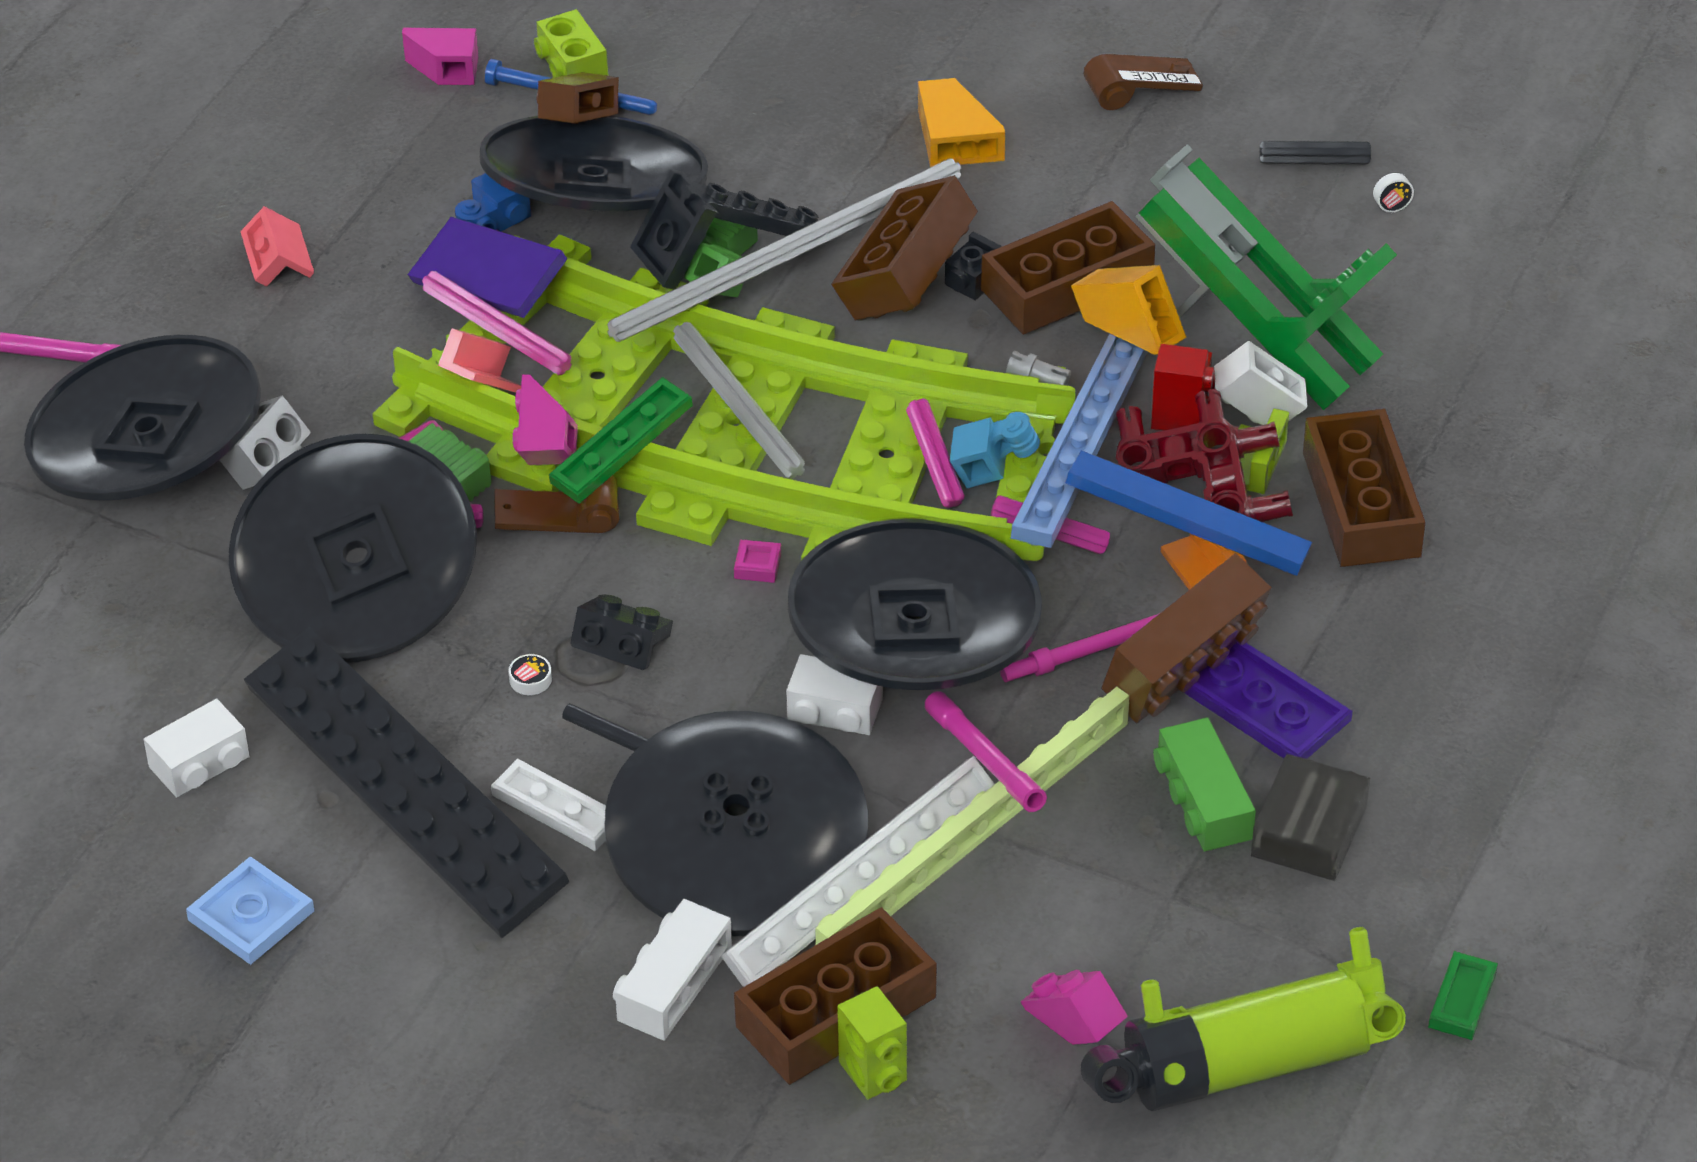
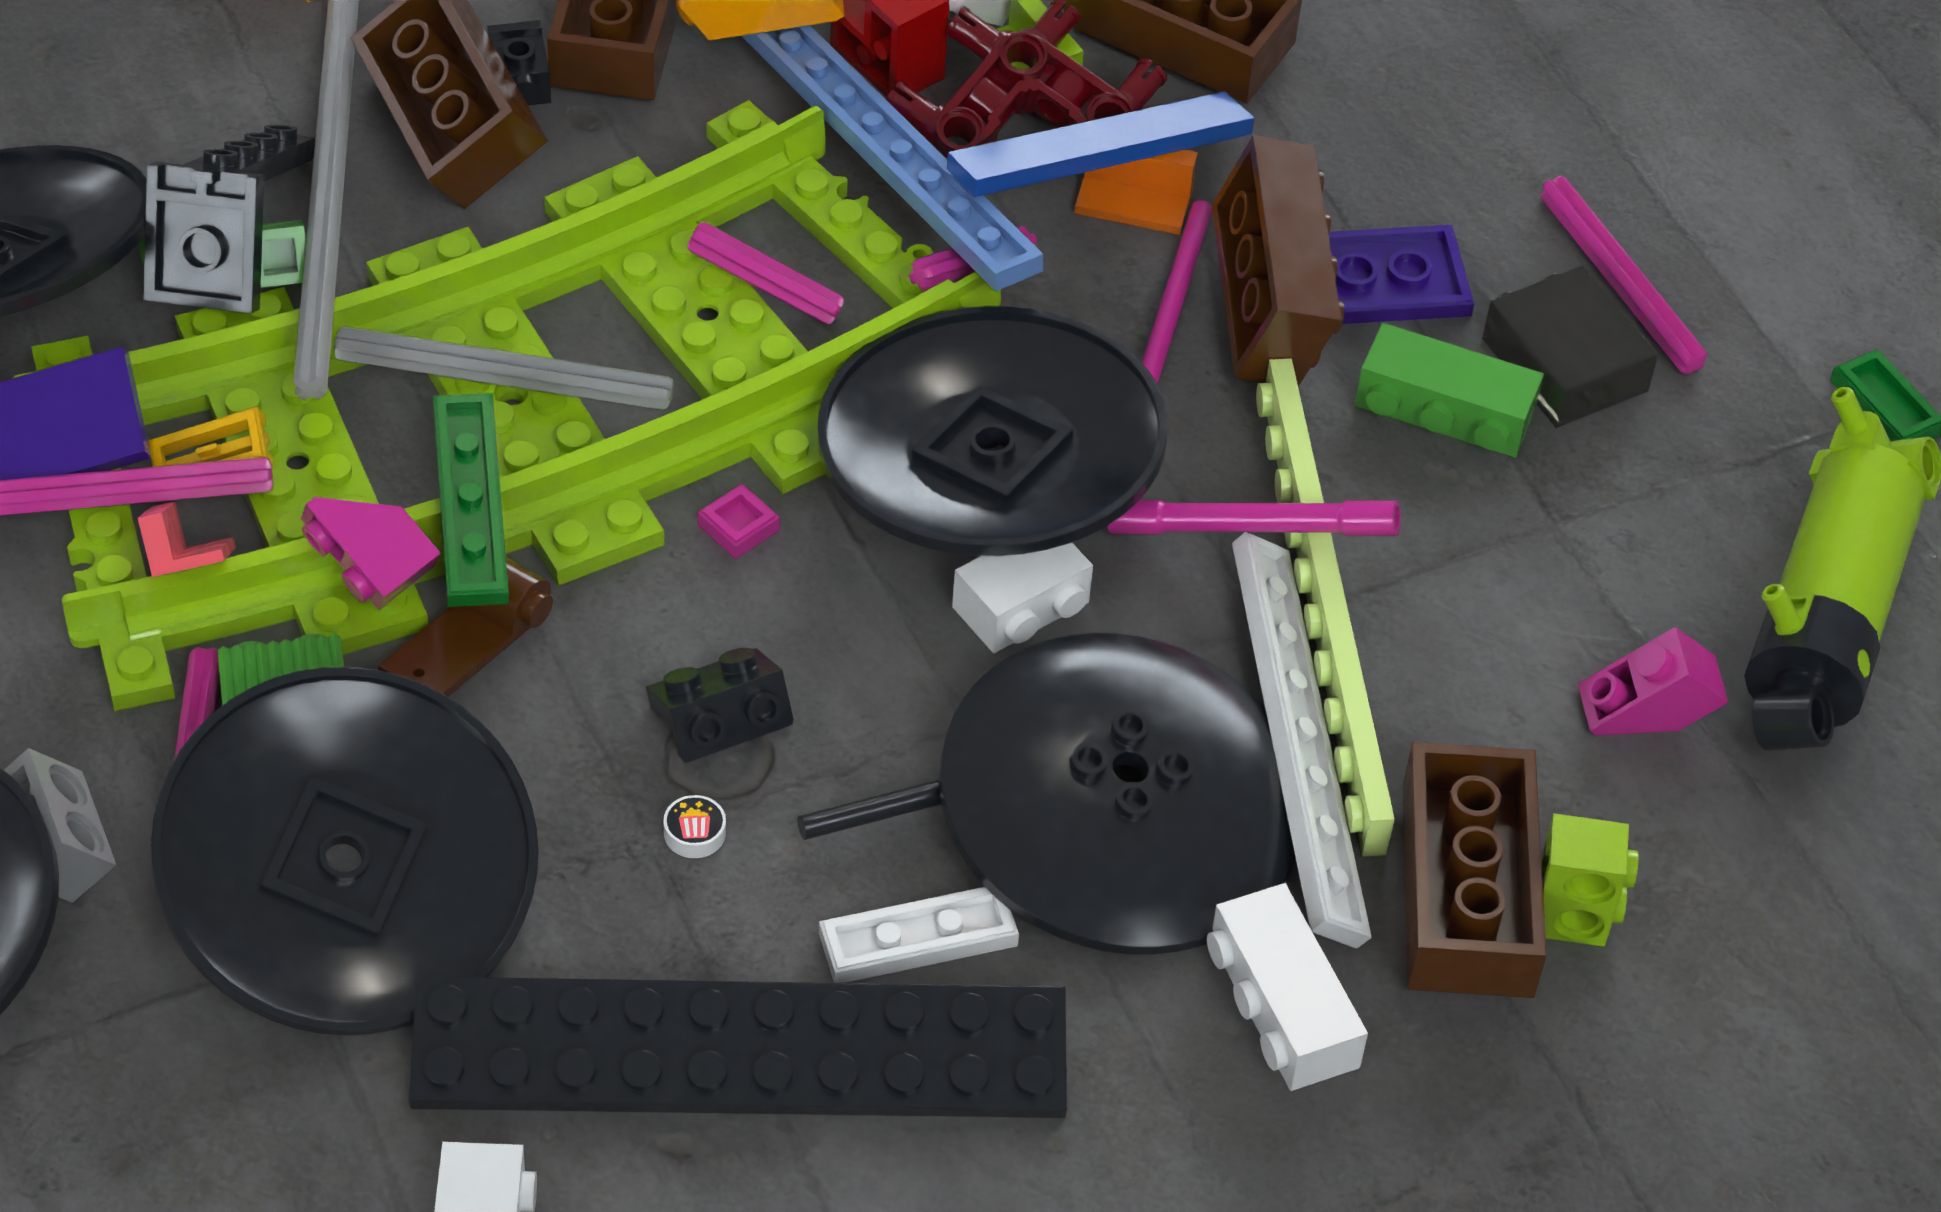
camera: 55 degrees left, 5 degrees up
(571, 346) = (245, 447): none -> yellow tile
(982, 447) = (802, 228): dark azure brick -> none
(1033, 367) = (746, 117): light grey pin -> none
(1411, 812) = (1624, 275): none -> dark pink axle

